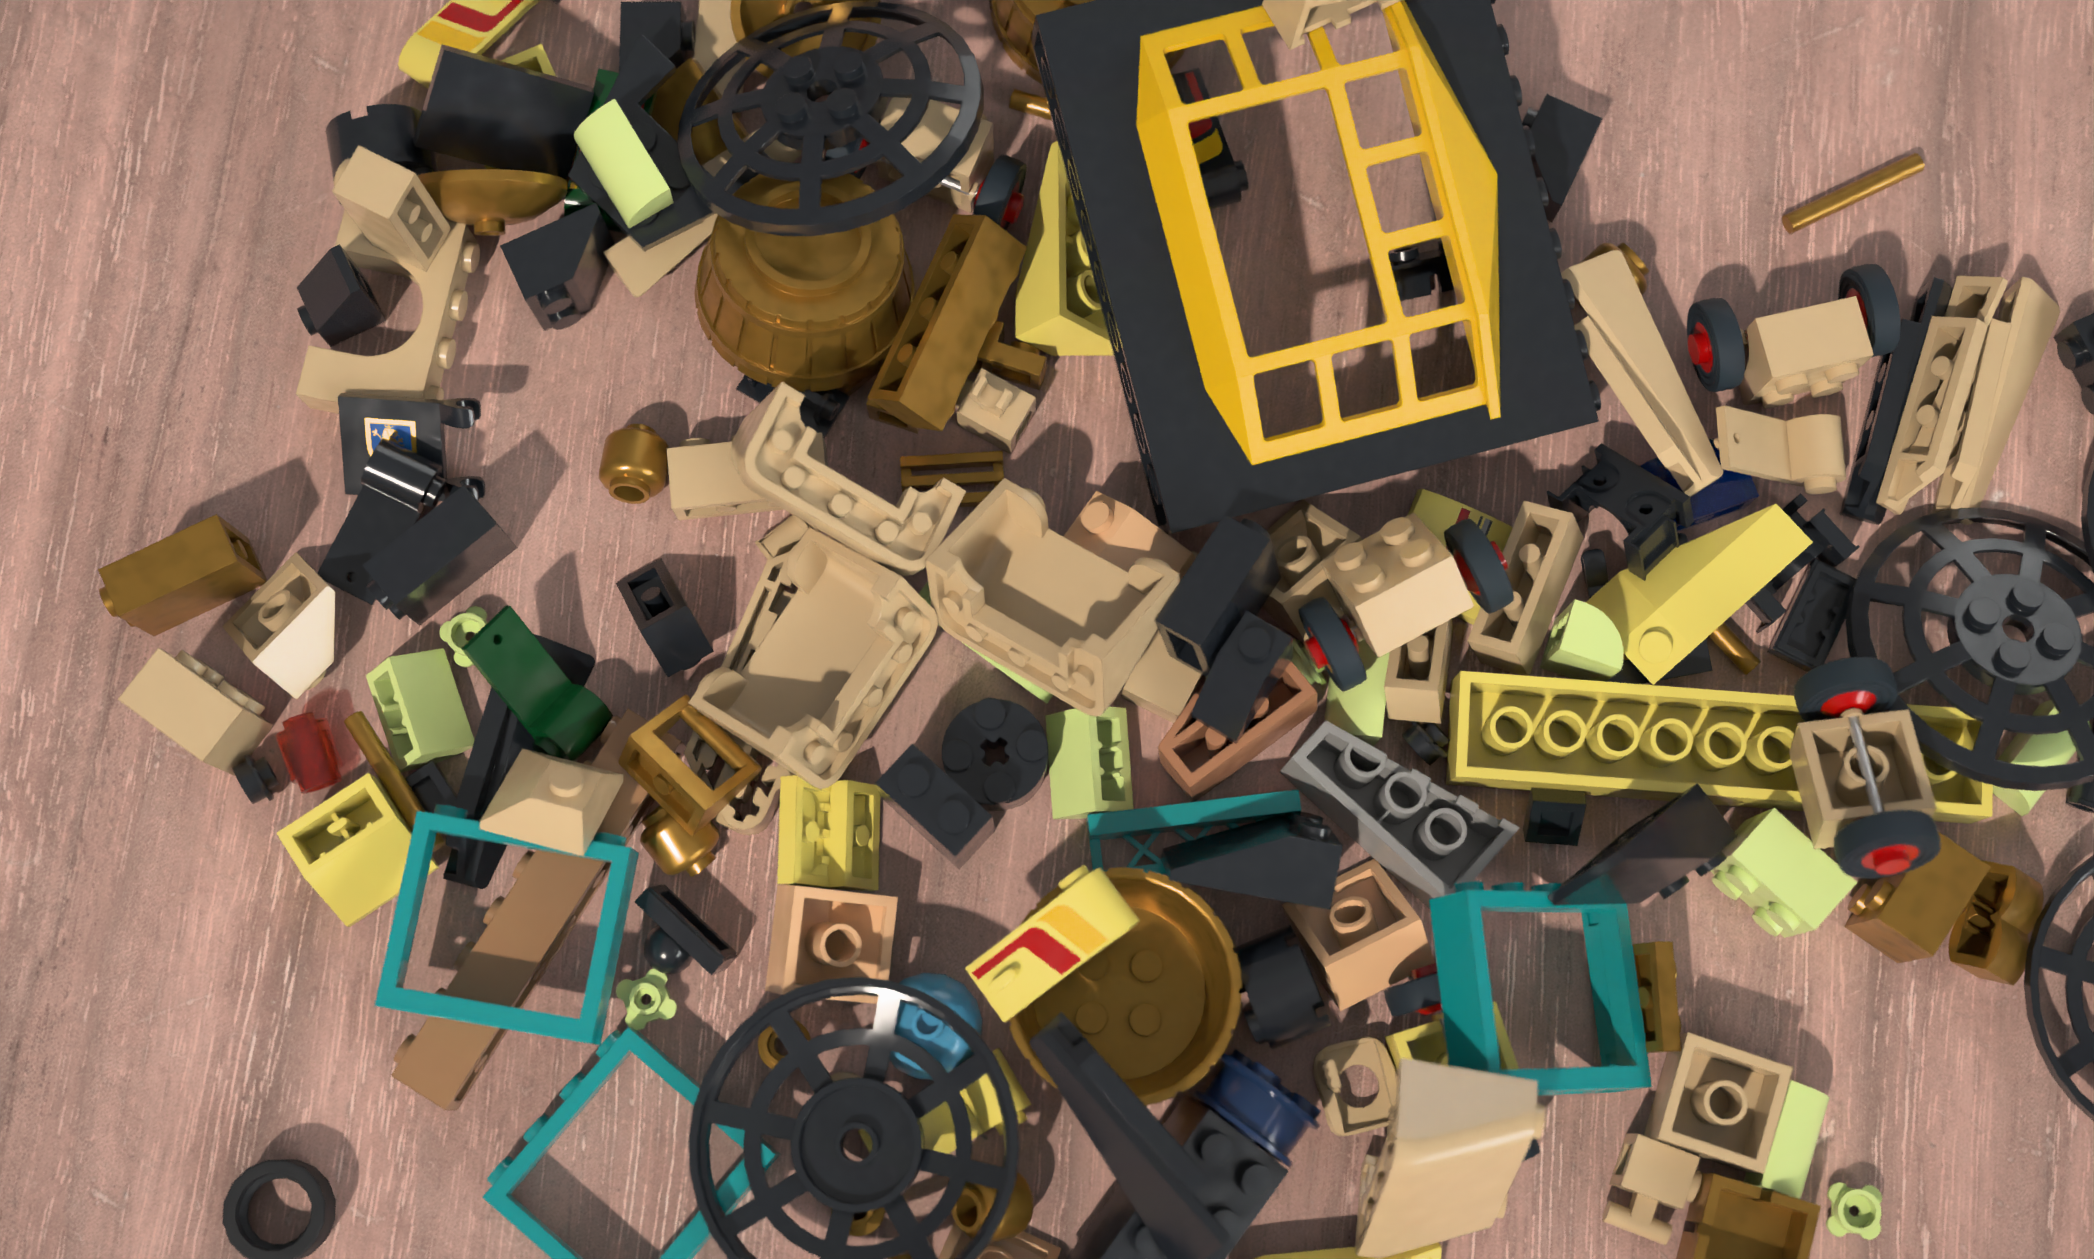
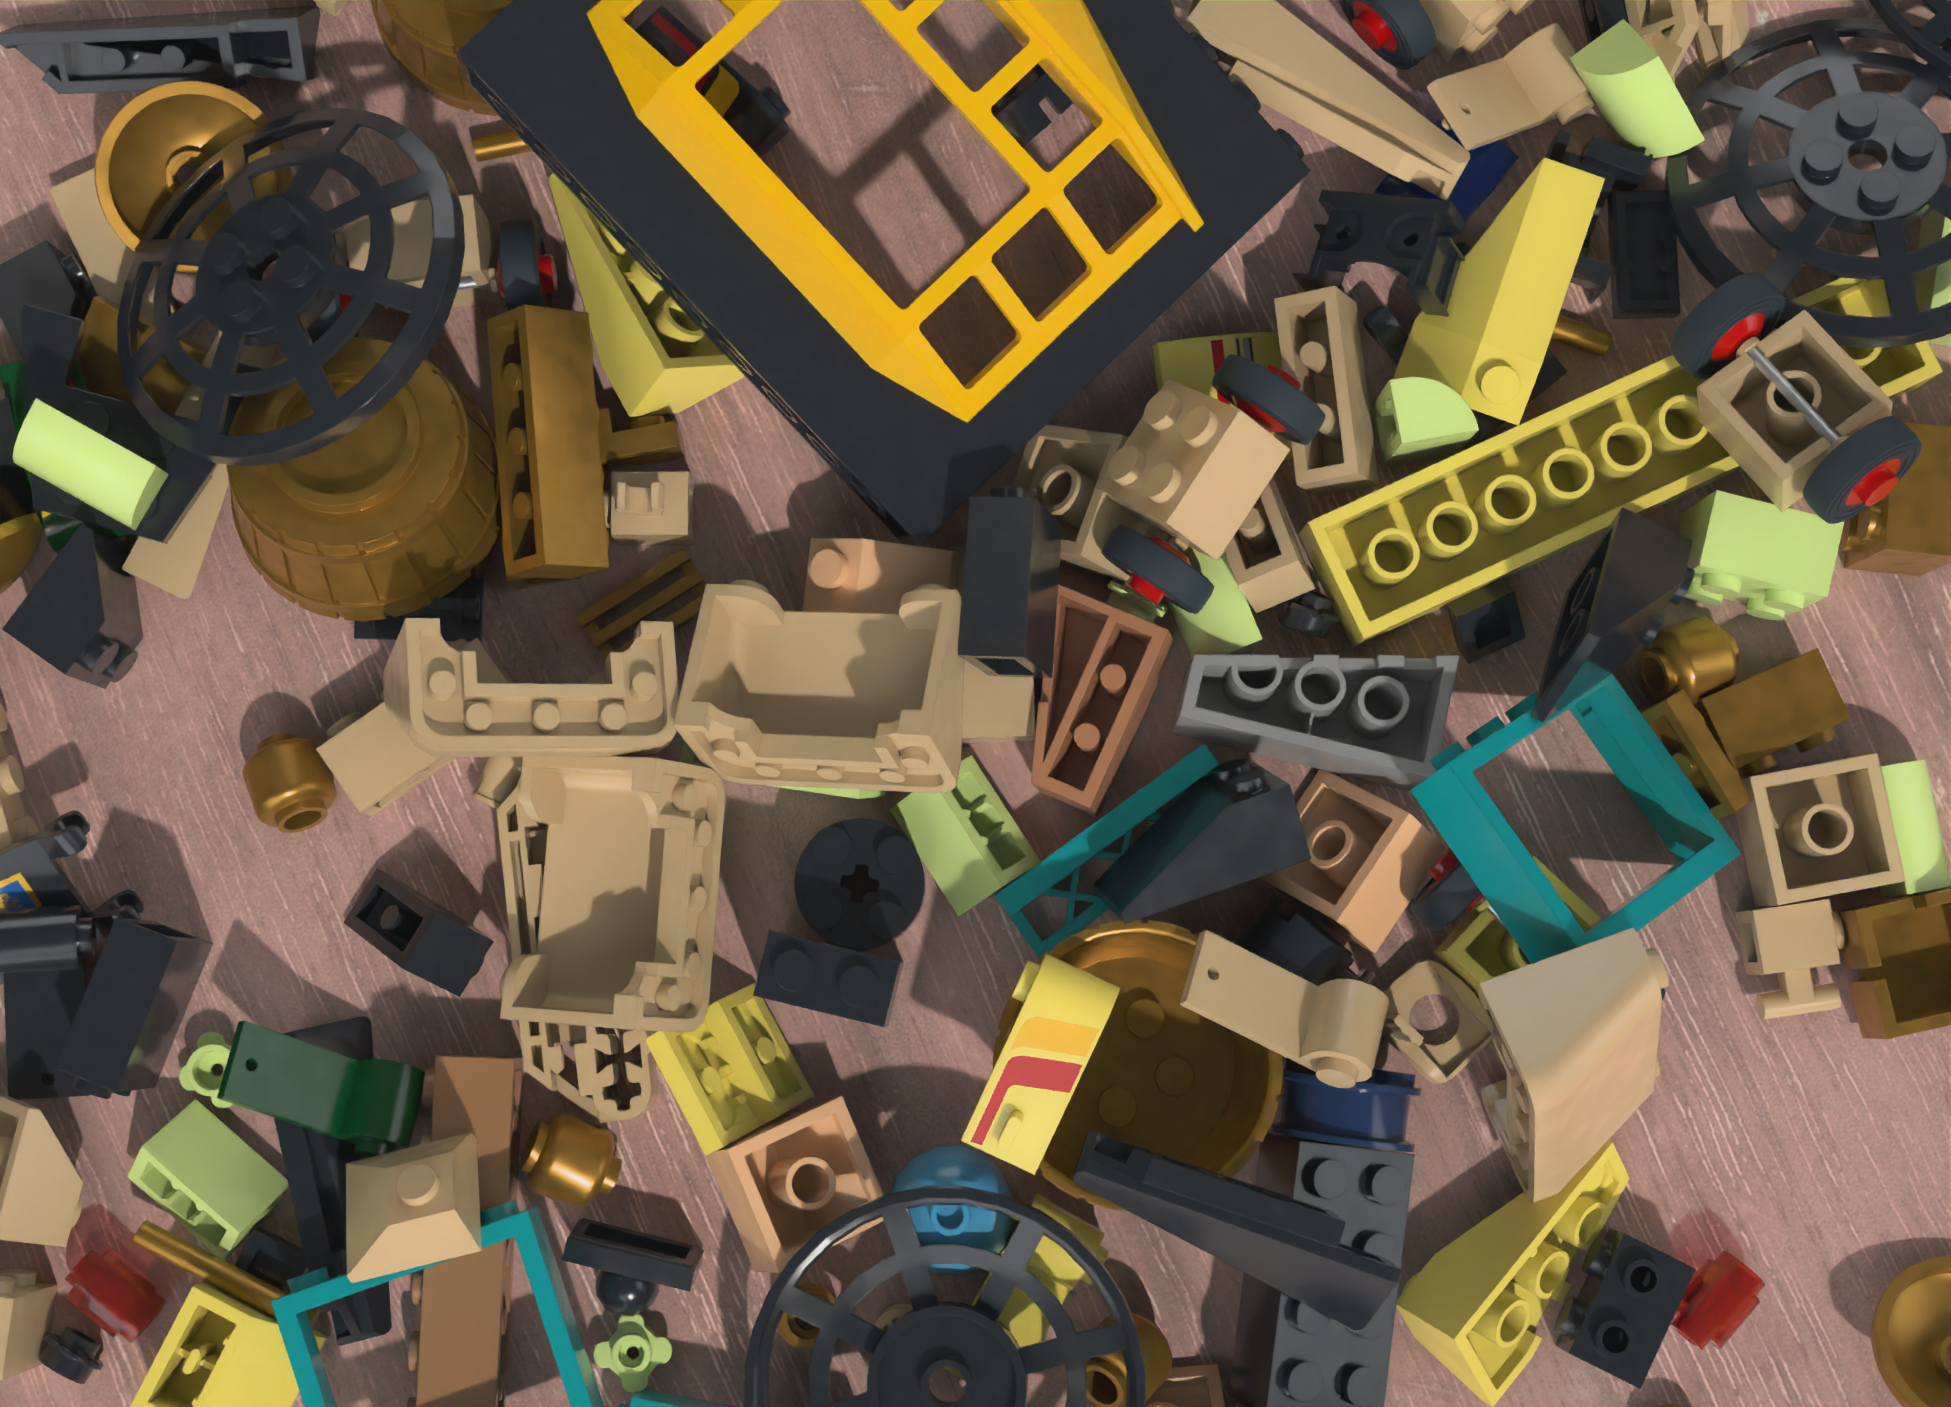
camera: 30 degrees left, 5 degrees up
(671, 780) = (528, 1110): pearl gold tile -> none
(1243, 676) = (1082, 659): black slope -> none
(1271, 1035) = (1321, 1027): none -> tan door
(1693, 924) = (1689, 657): none -> pearl gold head
(1733, 999) = (1774, 710): none -> pearl gold brick
(1869, 495) = (1636, 93): none -> yellowish green brick

